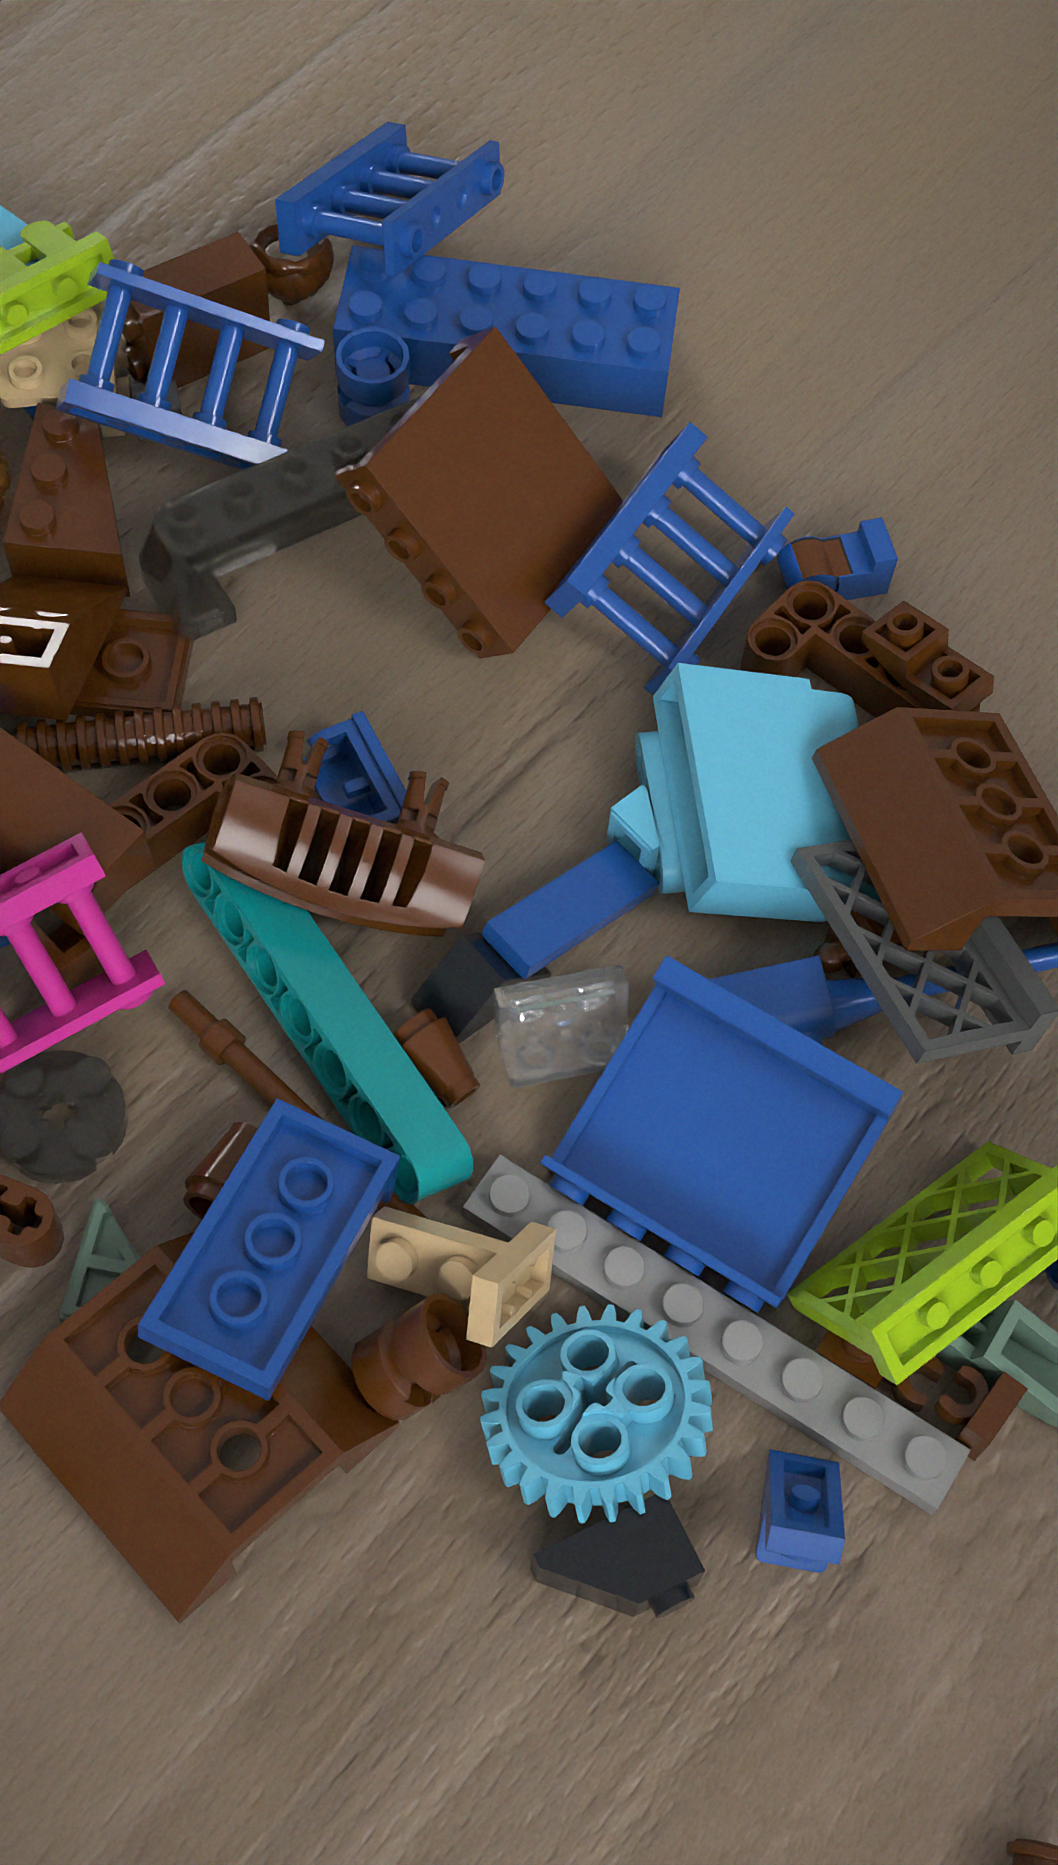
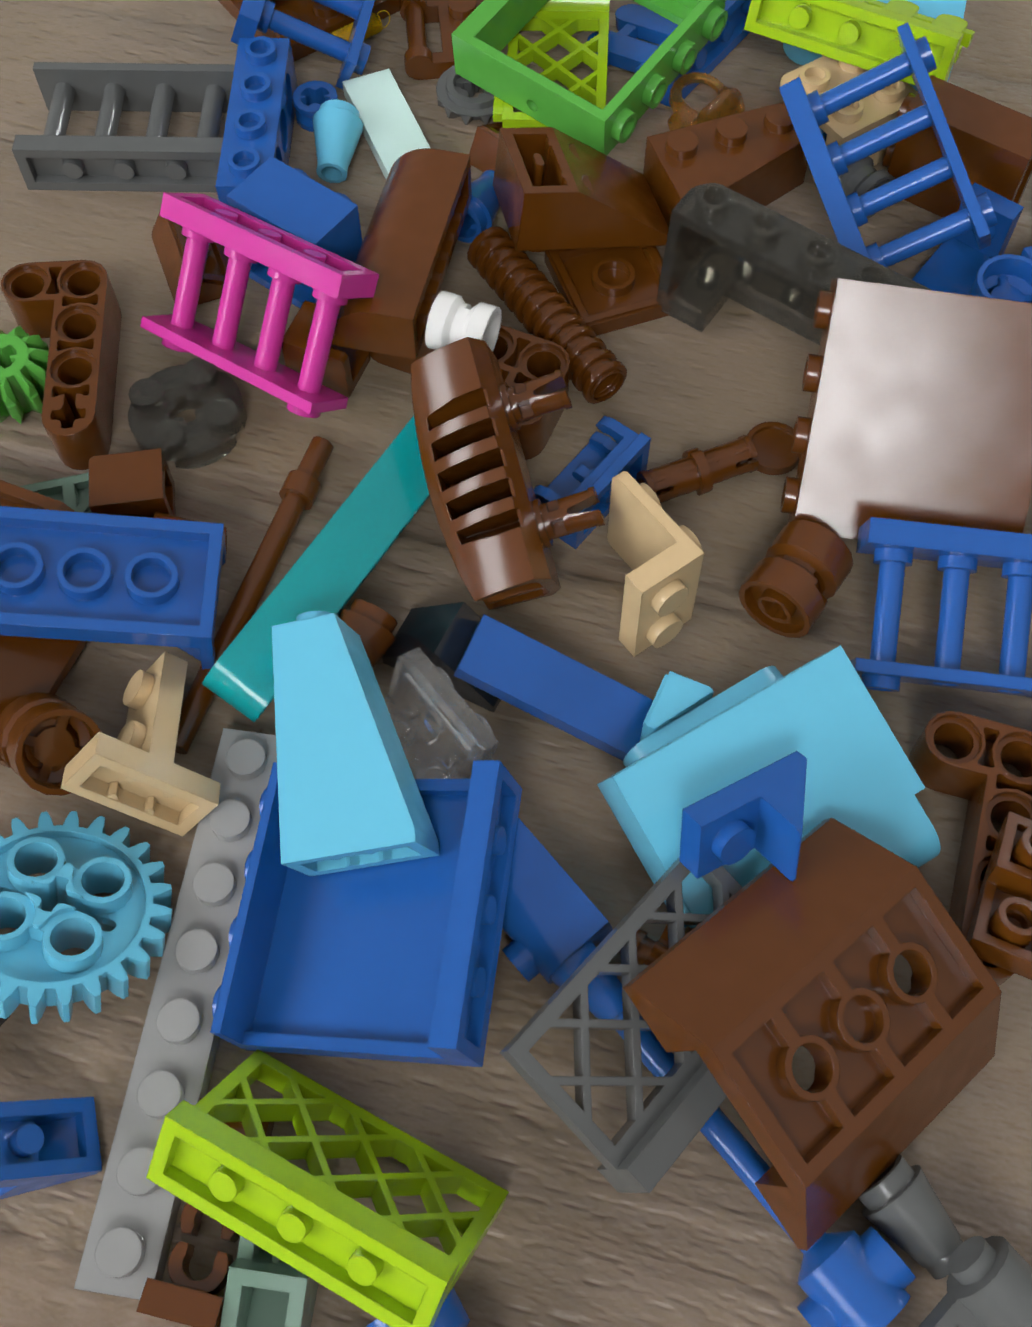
camera: 70 degrees right, 0 degrees up
(144, 1191) = (131, 484): none -> reddish brown panel
(159, 799) = (454, 320): none -> white wheel
(309, 406) = (959, 259): none -> blue bracket
(397, 697) = (701, 469): none -> reddish brown pin
(399, 630) = (774, 448): none -> reddish brown piece
(498, 762) = (663, 561): none -> tan bracket
(555, 669) = (796, 578): none -> reddish brown wheel
(579, 1094) = (339, 760): none -> medium azure slope
(813, 784) = (752, 813): none -> blue slope

